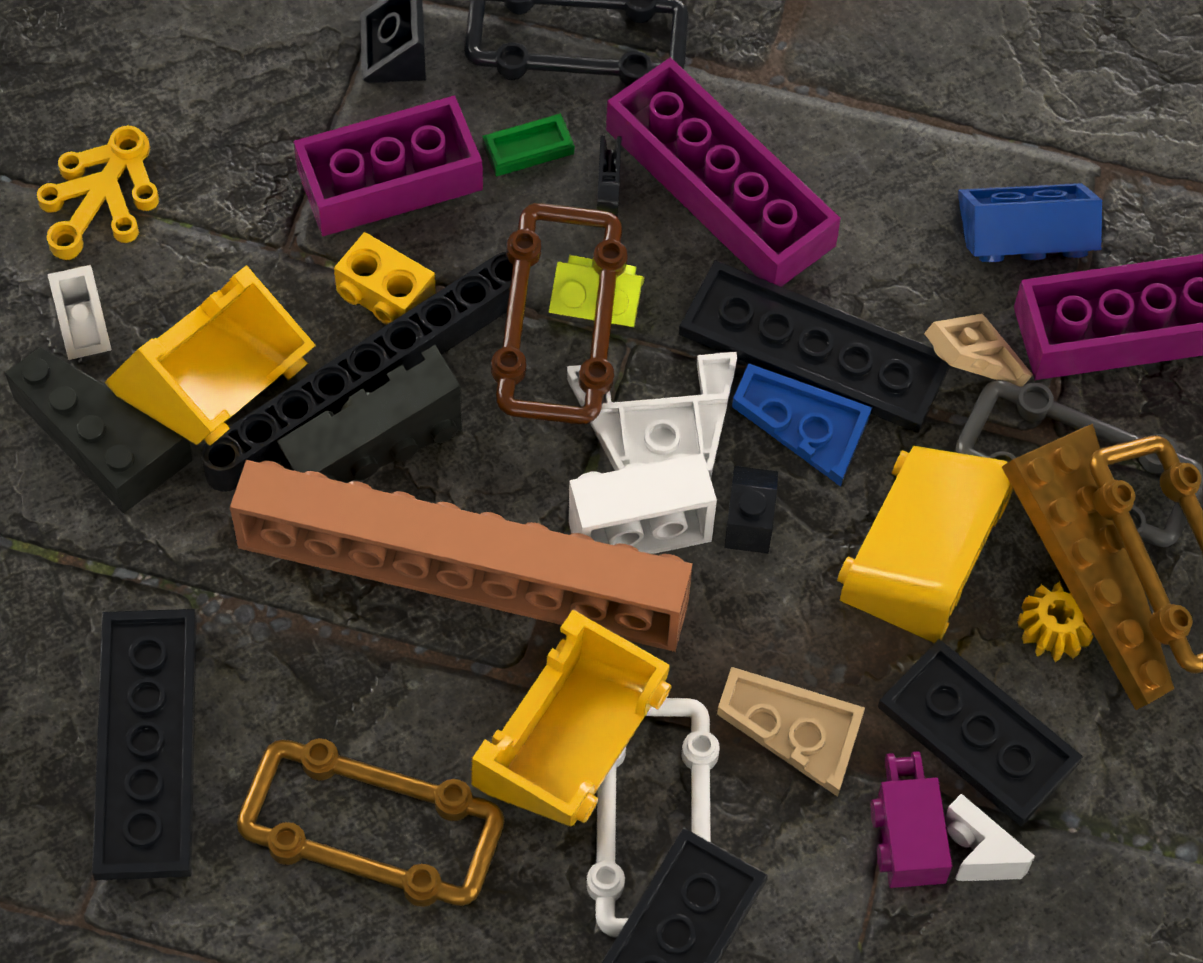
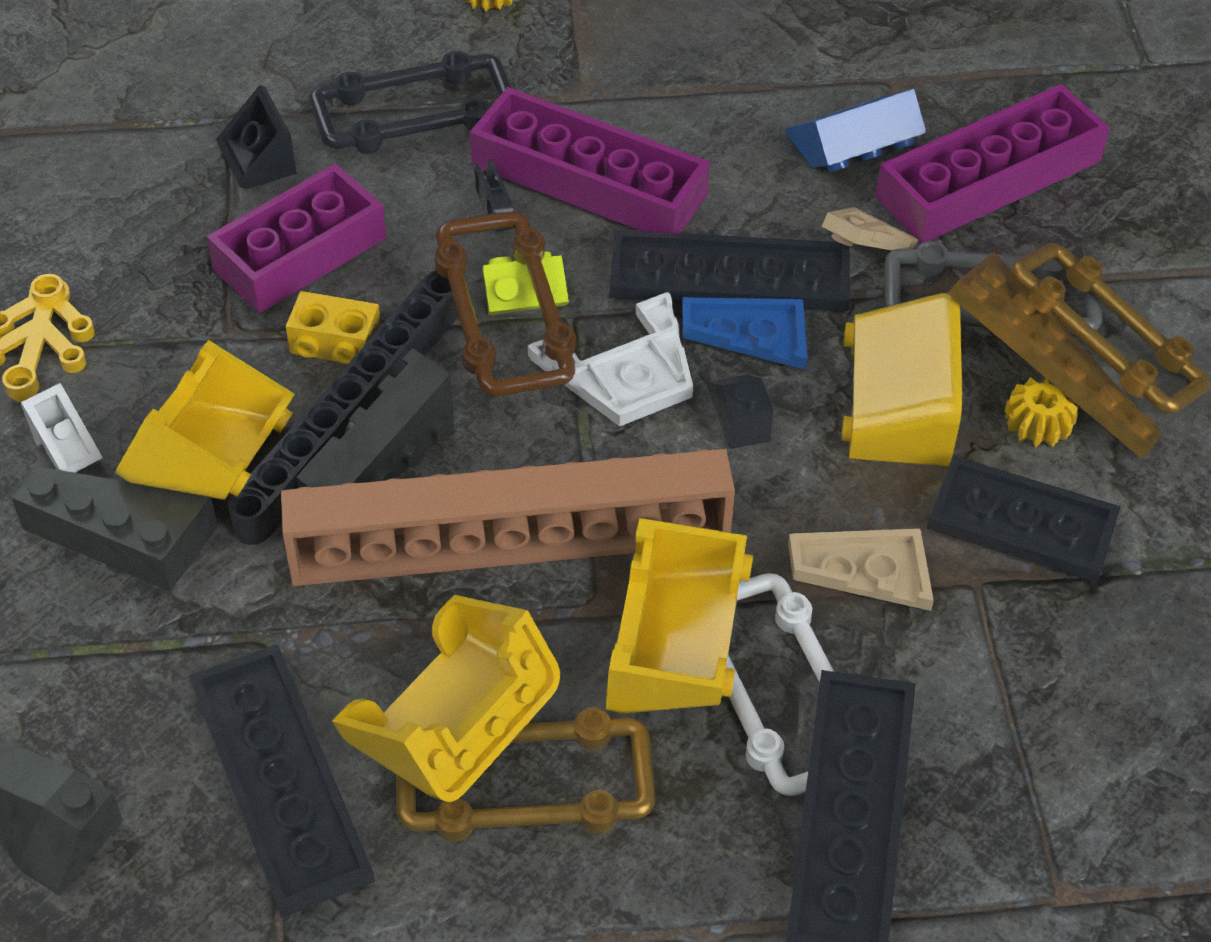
camera: 20 degrees left, 10 degrees down
(331, 736) = (464, 704): none -> yellow windscreen
(528, 144) = (412, 193): green tile -> none
(646, 504) = (662, 417): white brick -> none
(911, 825) = (1009, 609): magenta brick -> none
(994, 851) = (1088, 603): white slope -> none

